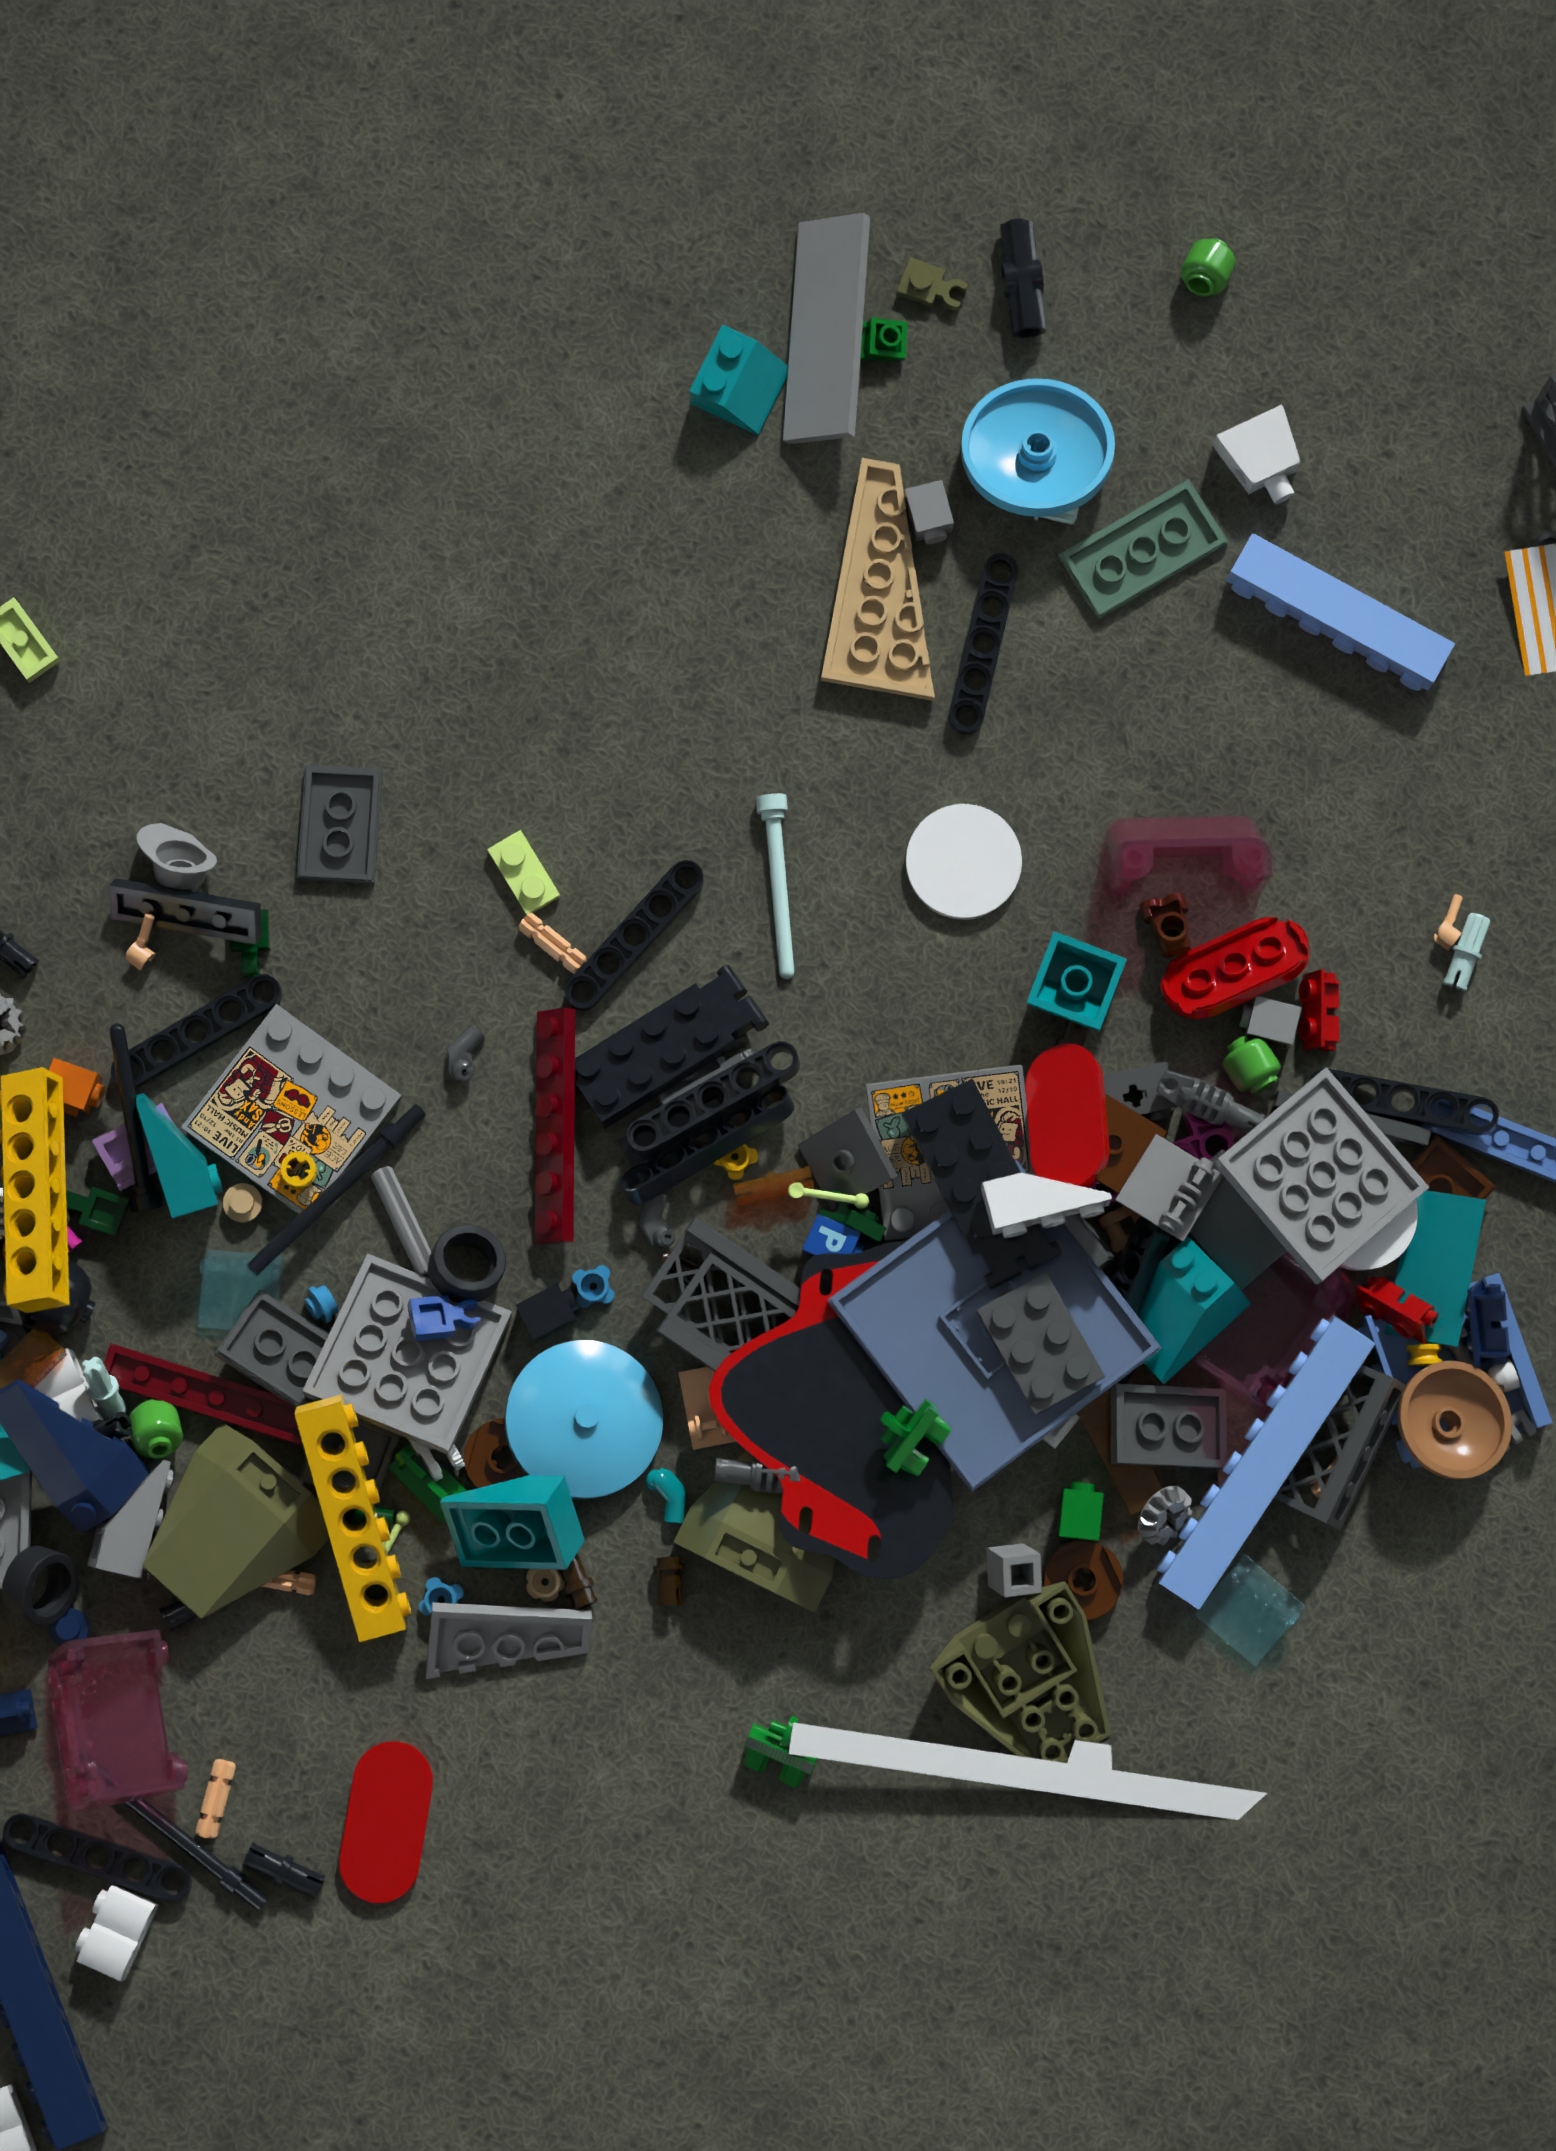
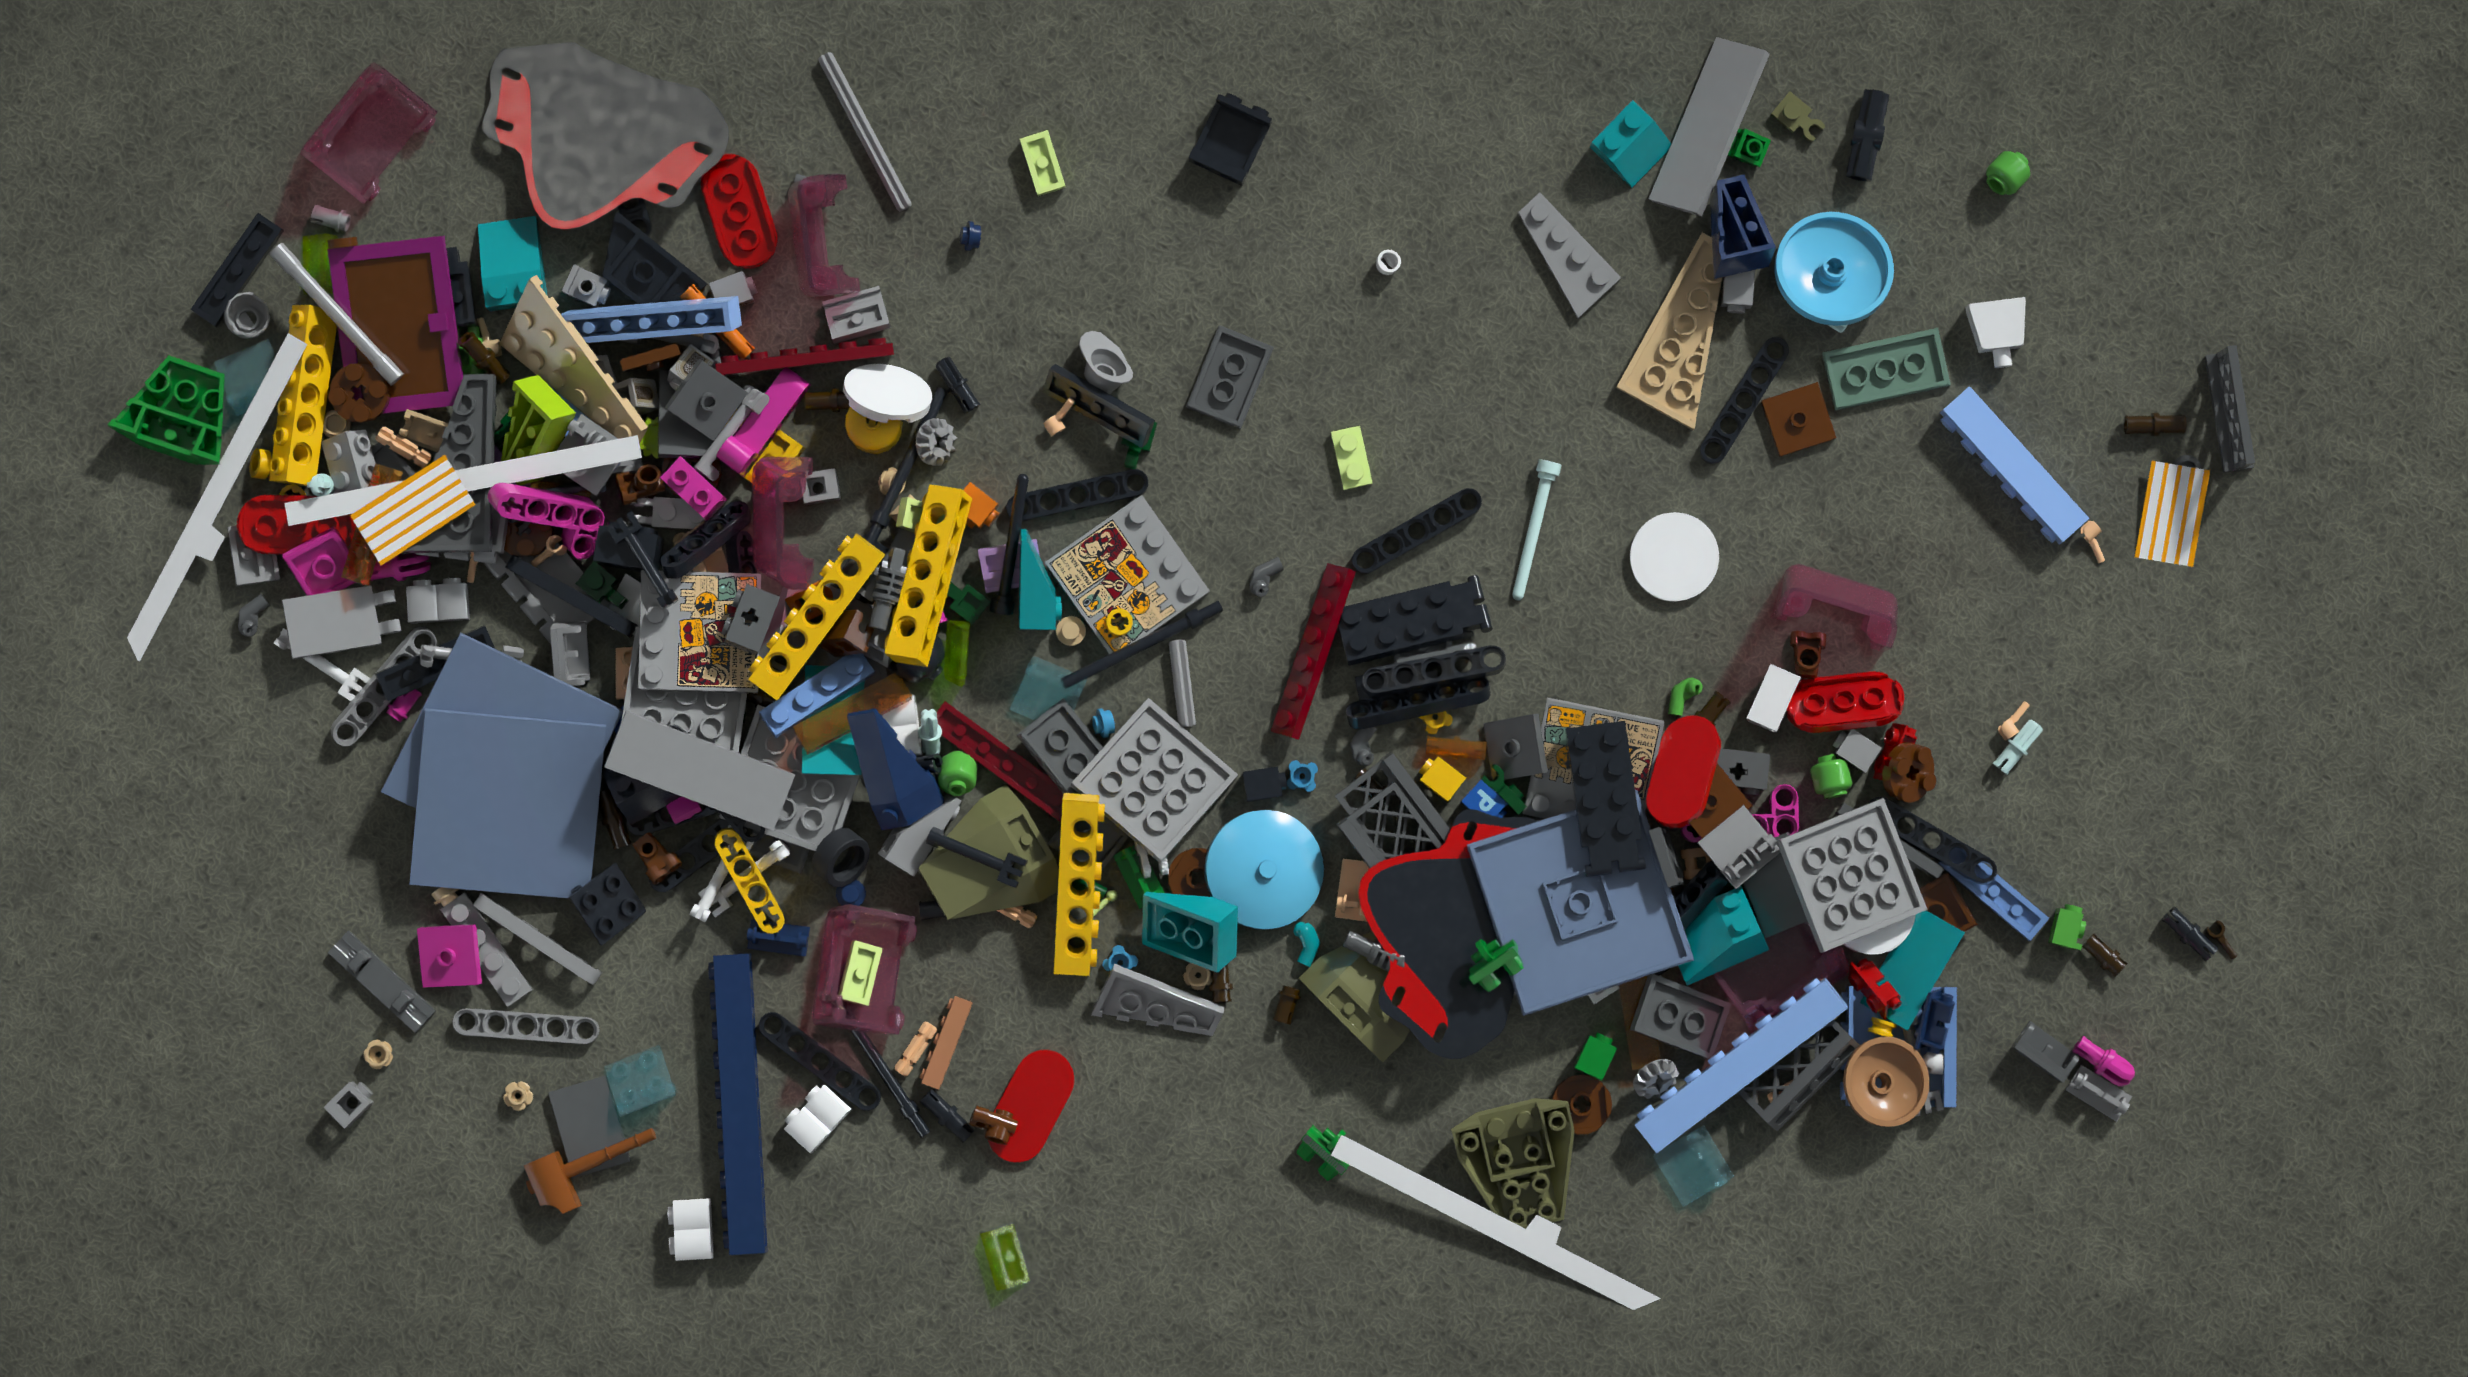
camera: 25 degrees right, 5 degrees up
(106, 1276) = (956, 652): none -> clear neon green slope
(111, 1725) = (860, 973): none -> yellowish green plate
(153, 1519) = (937, 838): none -> black hinge
(246, 534) = (1231, 138): none -> black panel
(251, 1777) = (946, 1042): none -> nougat piece
(351, 1861) = (998, 1124): none -> reddish brown plate
(417, 2029) = (1005, 1257): none -> clear neon green slope
(436, 1319) = (1182, 762): blue plate -> none
(473, 1237) = (1202, 744): black tyre -> none
(493, 615) = (1392, 259): none -> white hinge
(552, 943) = (1355, 516): light nougat axle -> none
(717, 546) = (1571, 259): none -> light grey wing
(768, 1229) = (1441, 778): none -> yellow brick
(796, 1190) = (1471, 758): yellowish green hinge -> none
(905, 436) = (1738, 229): none -> dark blue wedge
(1014, 1570) = (1534, 1080): light grey brick -> none
(1028, 1027) = (1681, 692): none -> bright green arm
(1030, 1199) = (1634, 823): white slope -> none
(1040, 1344) = (1607, 927): dark grey plate -> none
(1057, 645) = (1798, 419): none -> reddish brown plate
(1076, 981) = (1724, 674): teal slope -> none
(1146, 992) = (1773, 698): none -> white hinge
(1206, 1101) = (1788, 793): dark grey hinge -> none
(1363, 1029) = (1921, 777): none -> reddish brown plate
(1461, 660) = (2090, 531): none -> light nougat hand
(1492, 507) = (2155, 424): none -> dark brown pin

